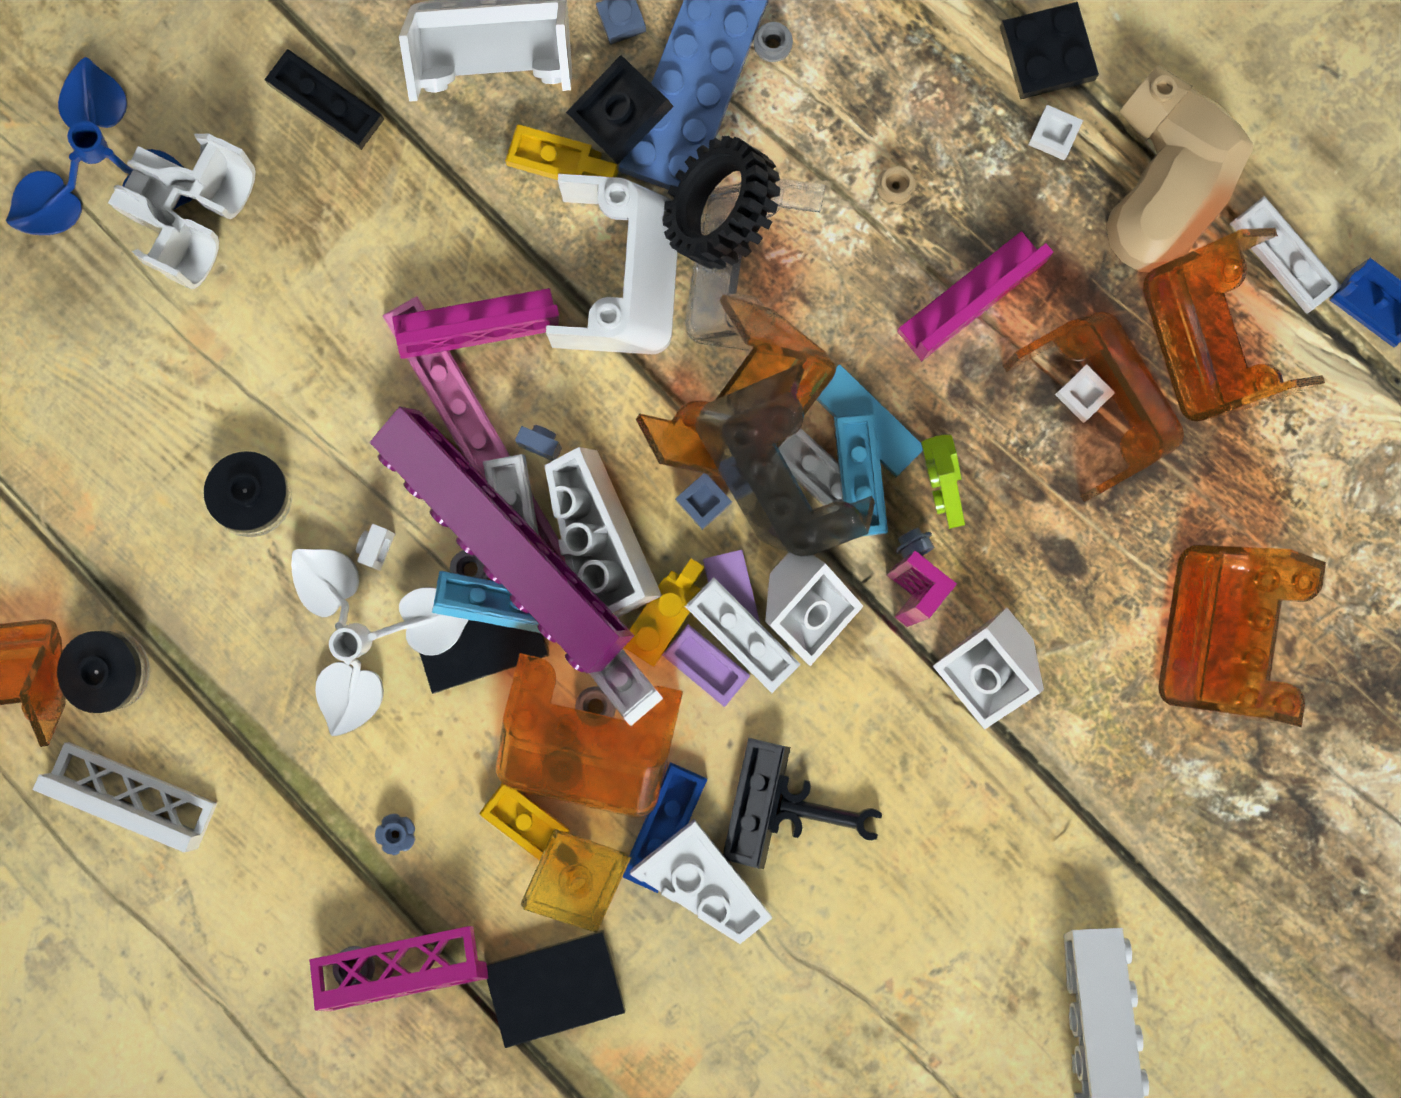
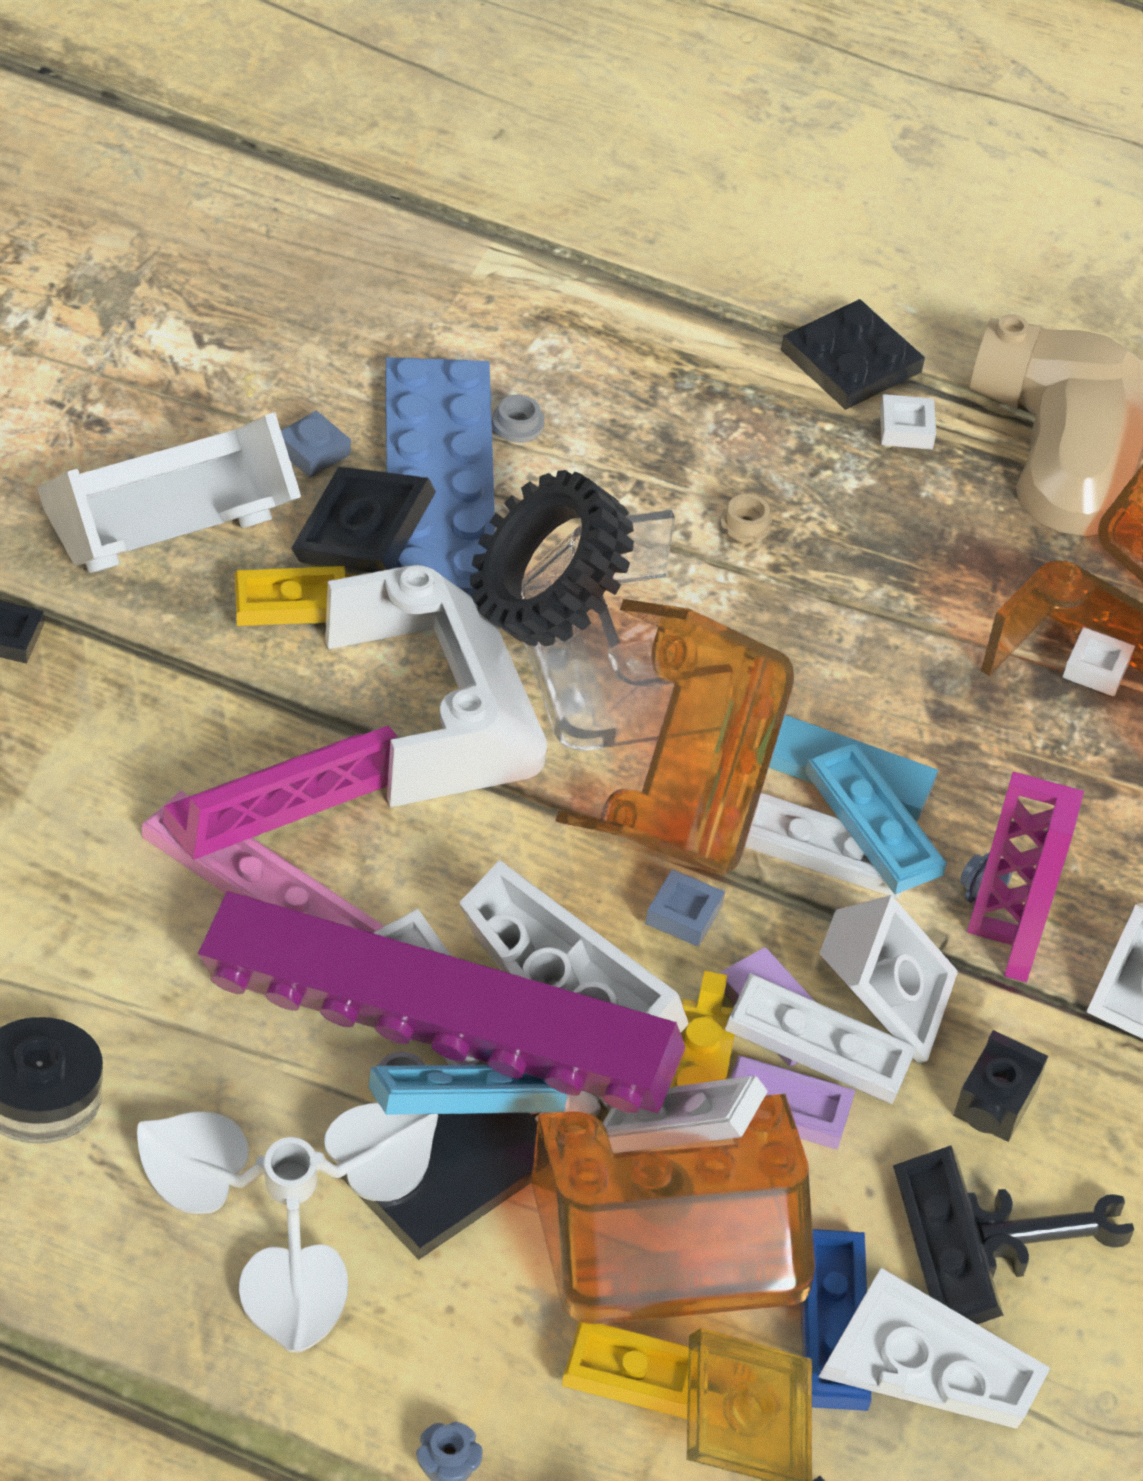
camera: 30 degrees left, 35 degrees down
(374, 546) = (251, 1089): white plate -> none
(539, 441) = (435, 898): sand blue plate -> none
(741, 441) = (763, 815): clear smoke windscreen -> none
(853, 698) = (1000, 1086): none -> black brick
(944, 472) = (979, 771): lime plate -> none
(973, 295) = (904, 603): dark pink fence -> none

